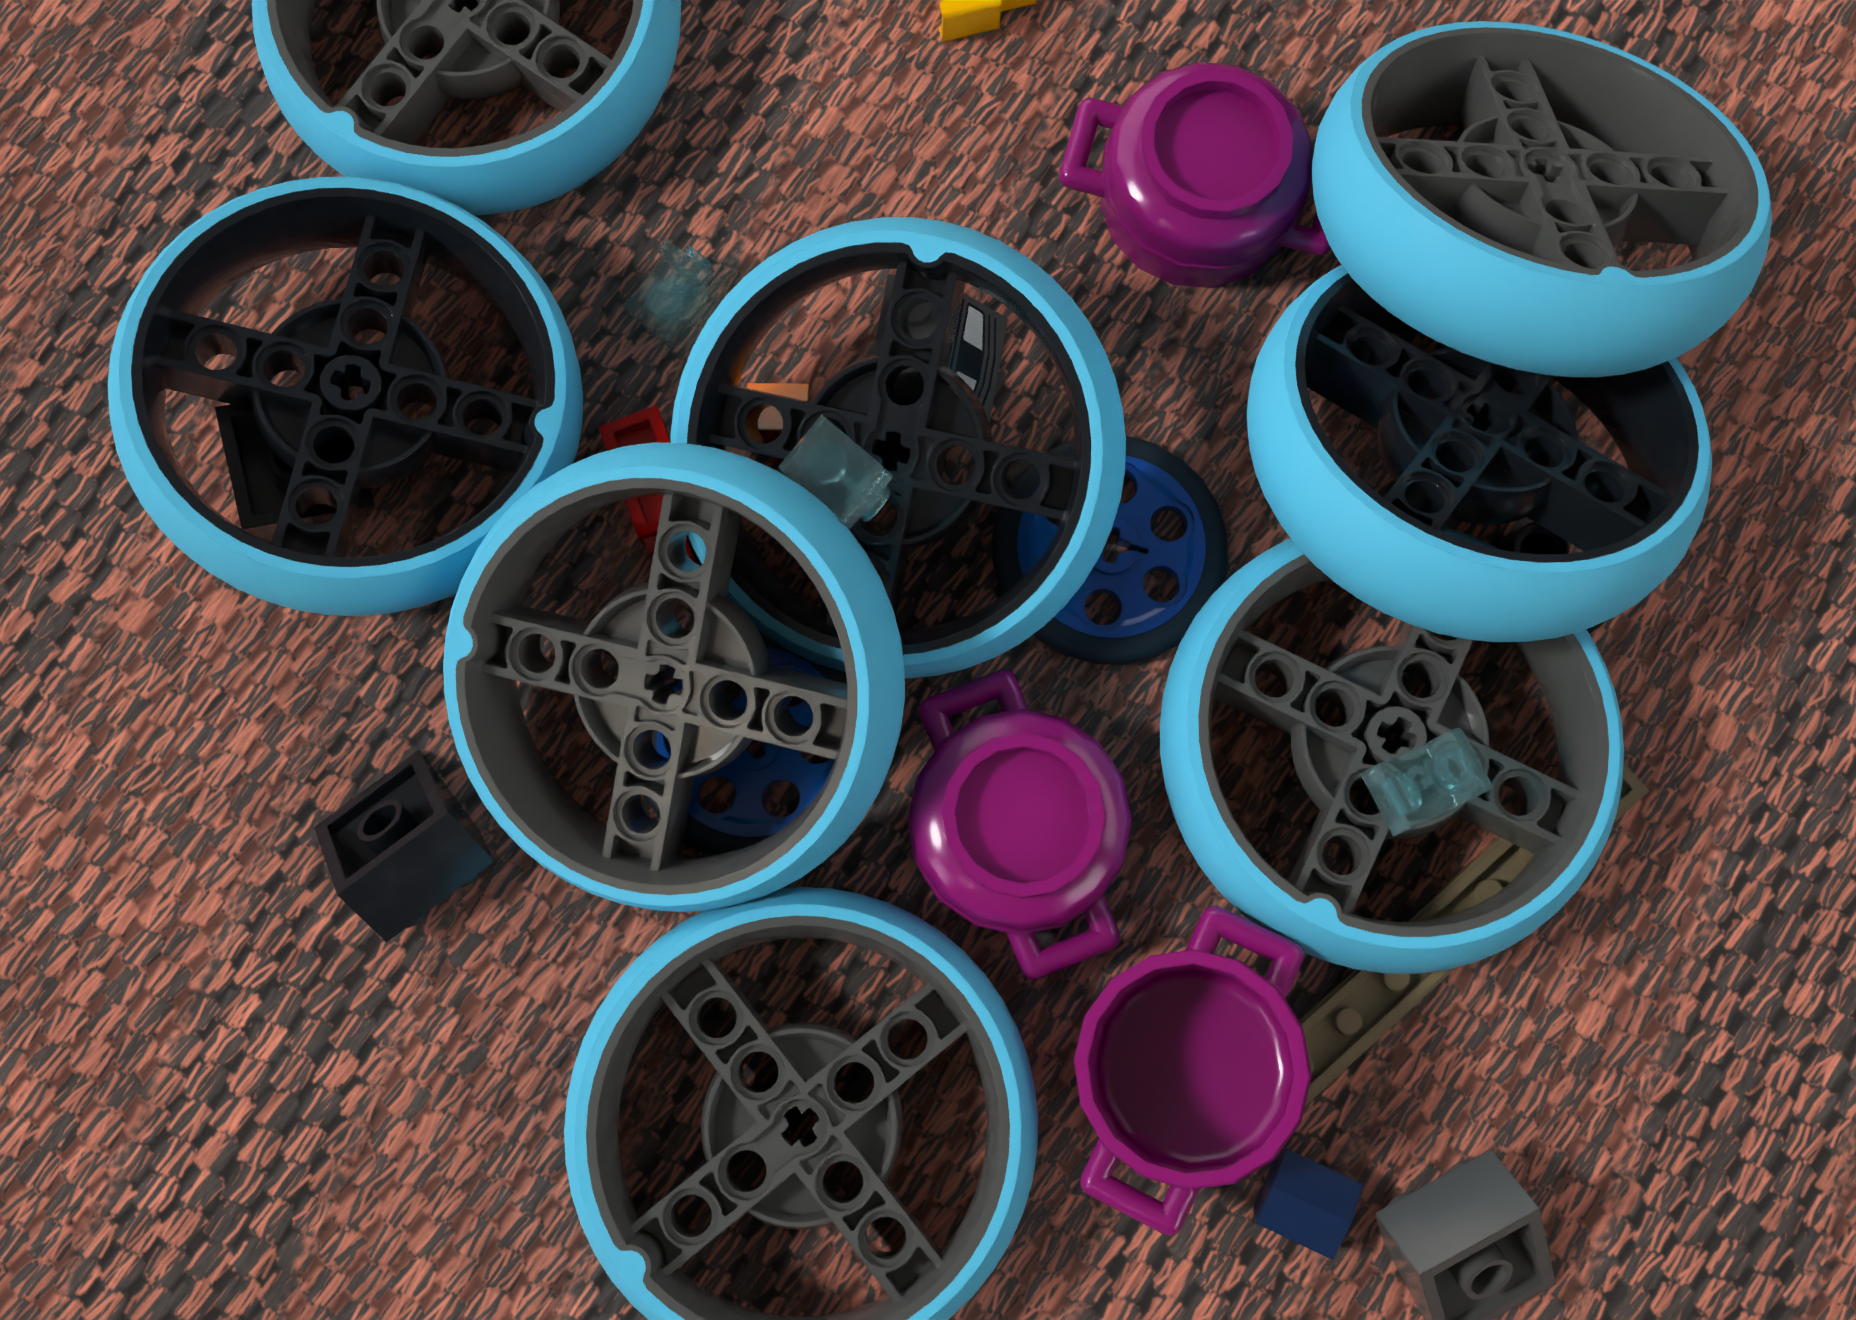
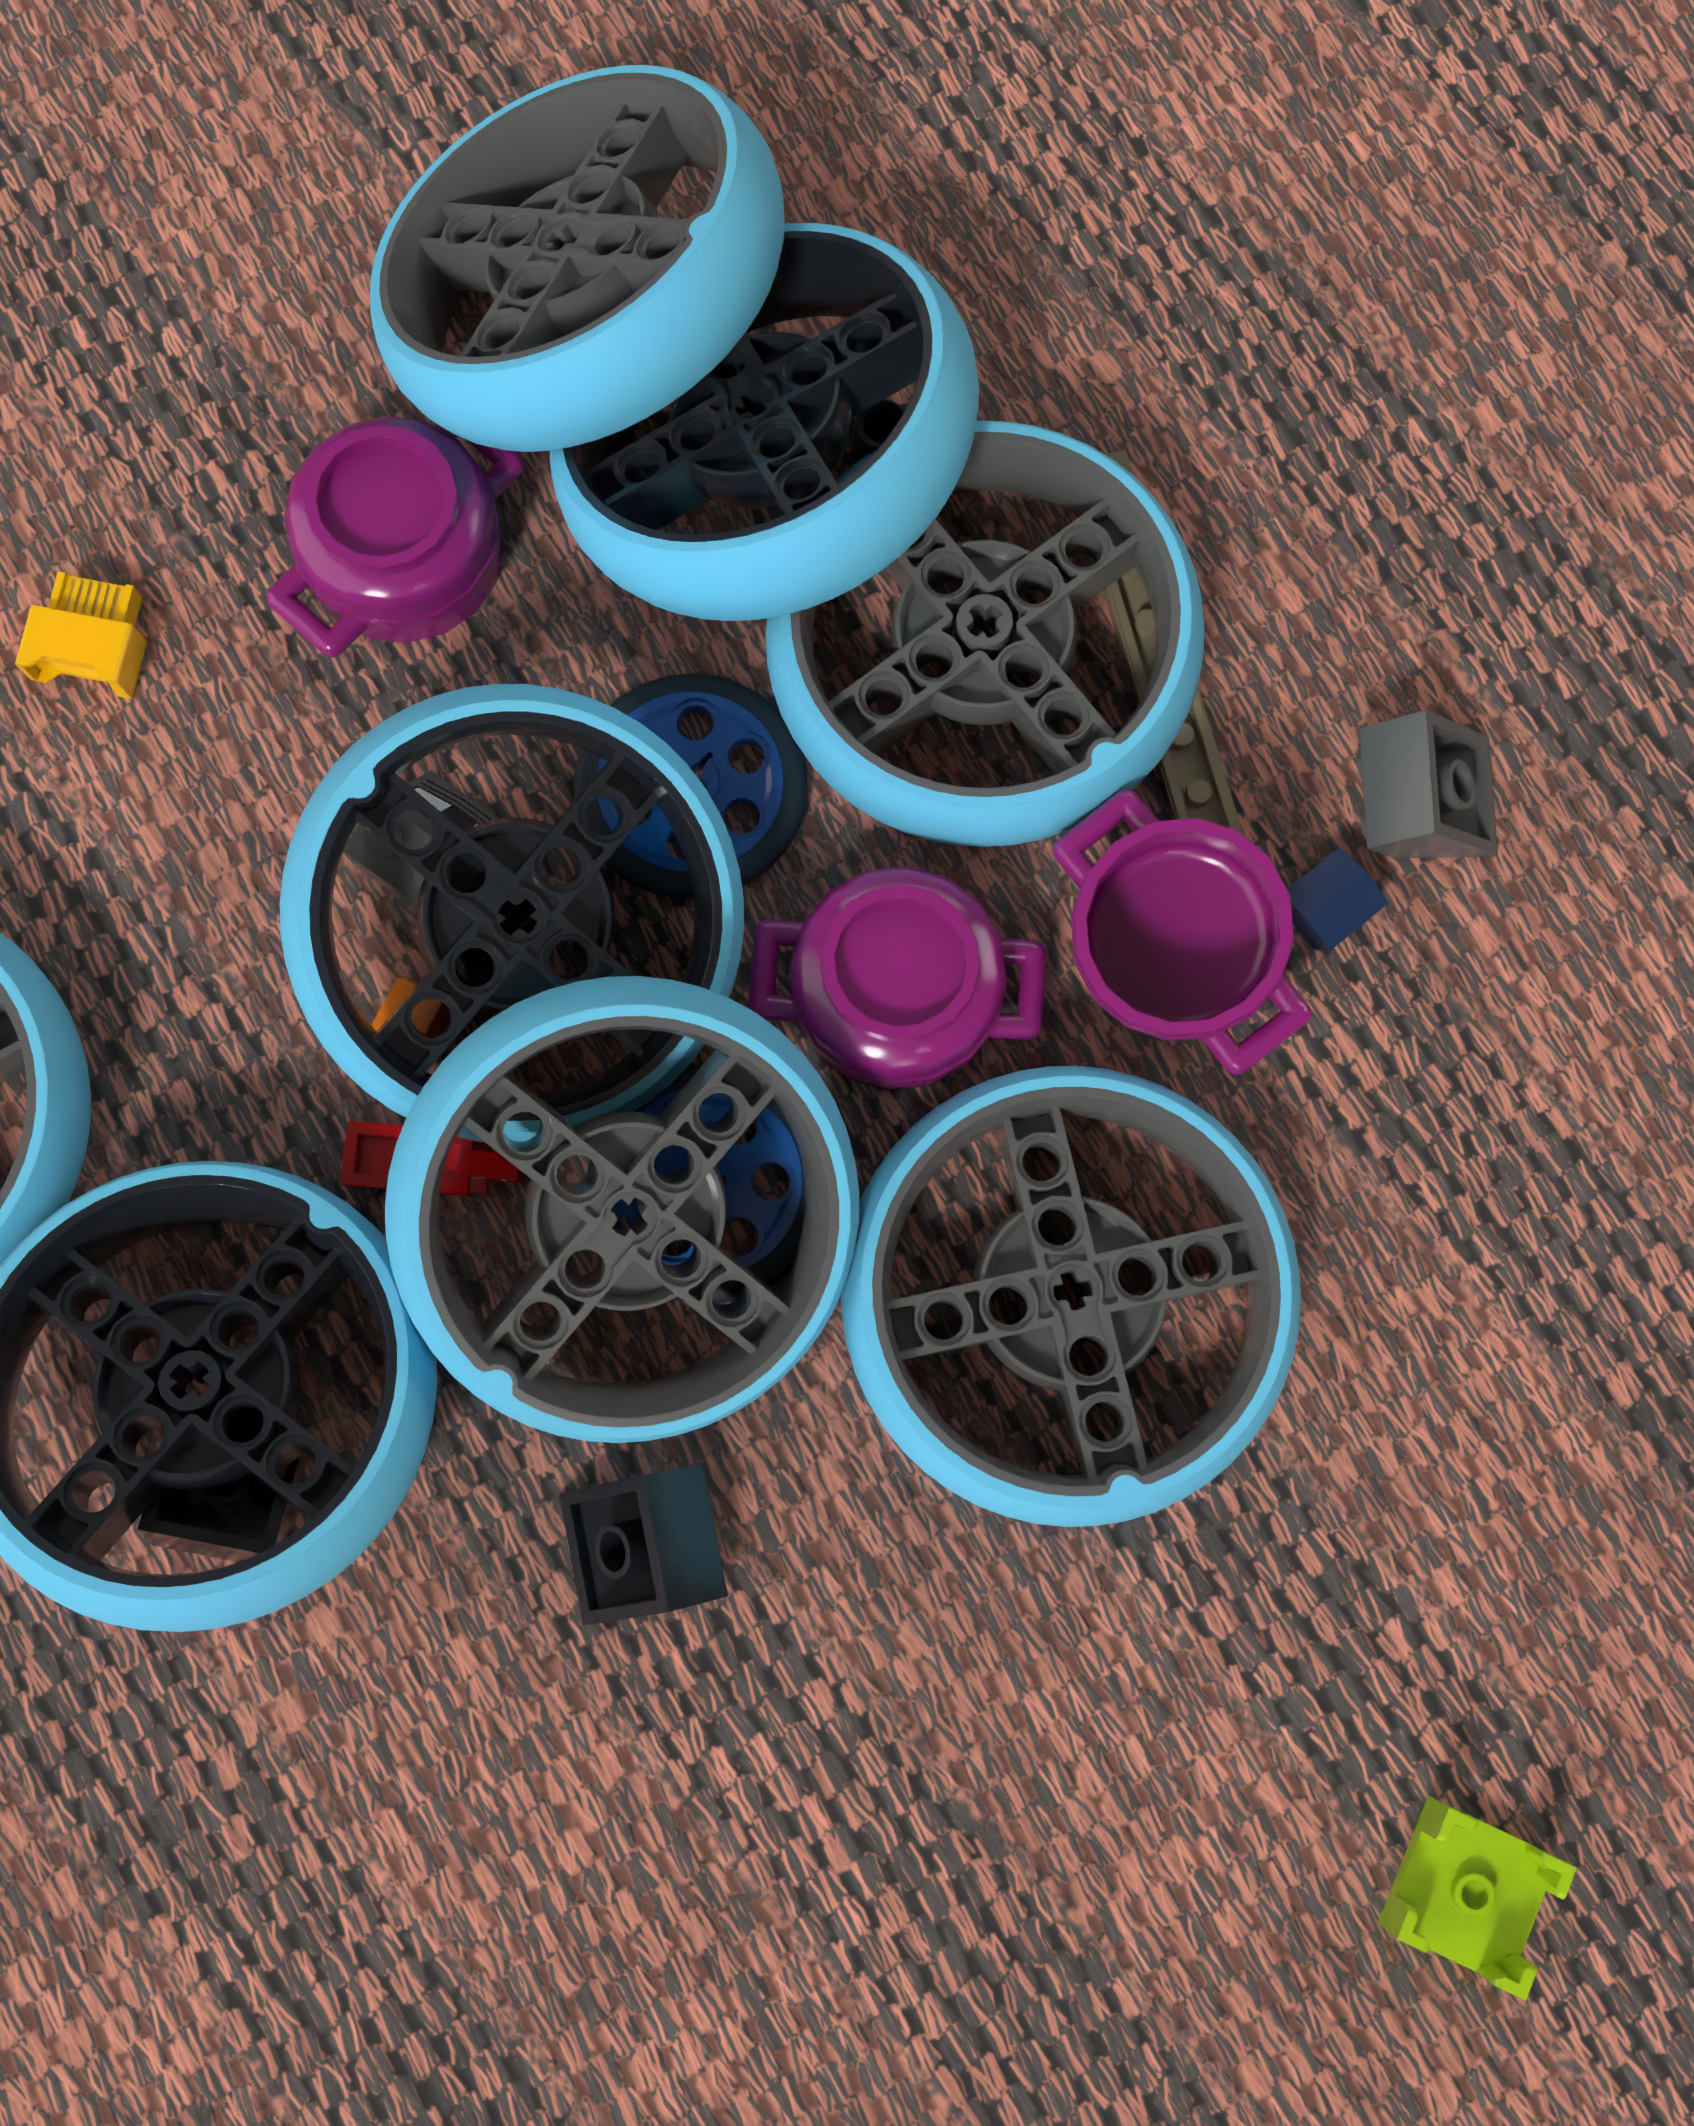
camera: 65 degrees left, 0 degrees up
(673, 294) = (246, 1057): clear light blue bracket -> none
(838, 473) = (521, 964): clear light blue bracket -> none
(1427, 781) = (1040, 609): clear light blue bracket -> none

